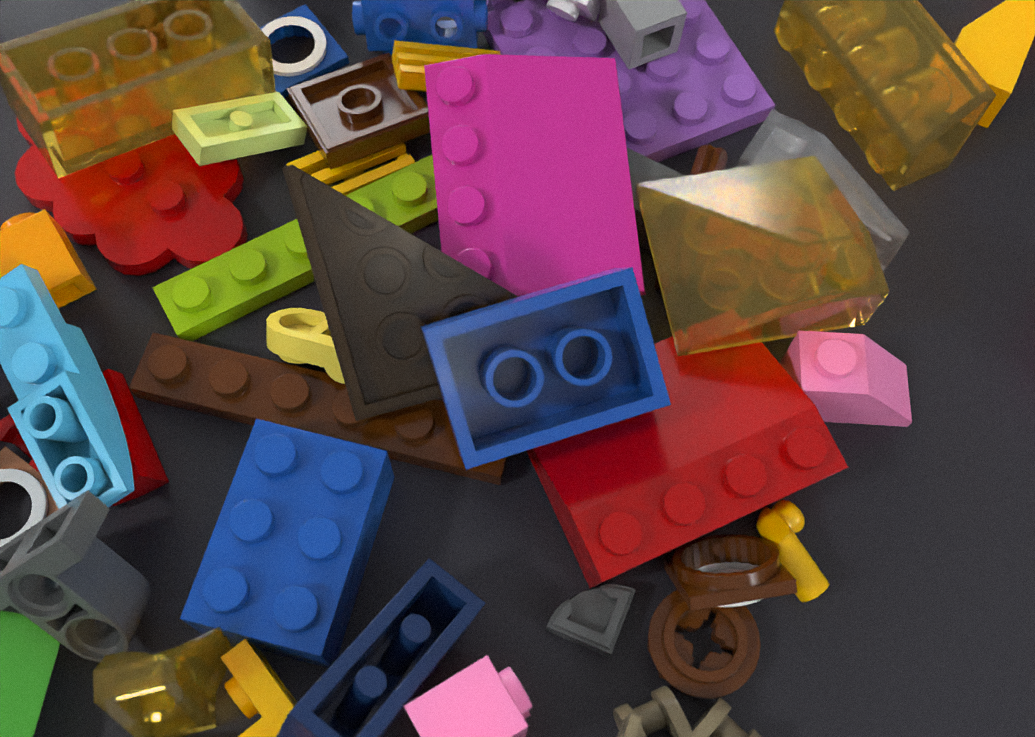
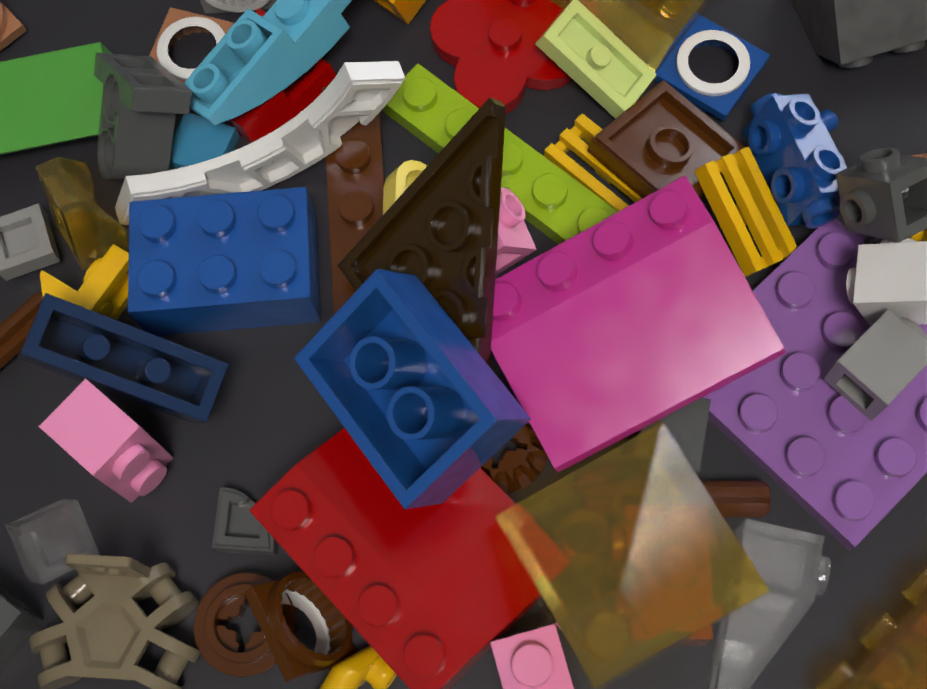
camera: 80 degrees right, 5 degrees up
(137, 535) = (200, 141): none -> dark azure tile
(194, 450) = (351, 97): none -> white tile

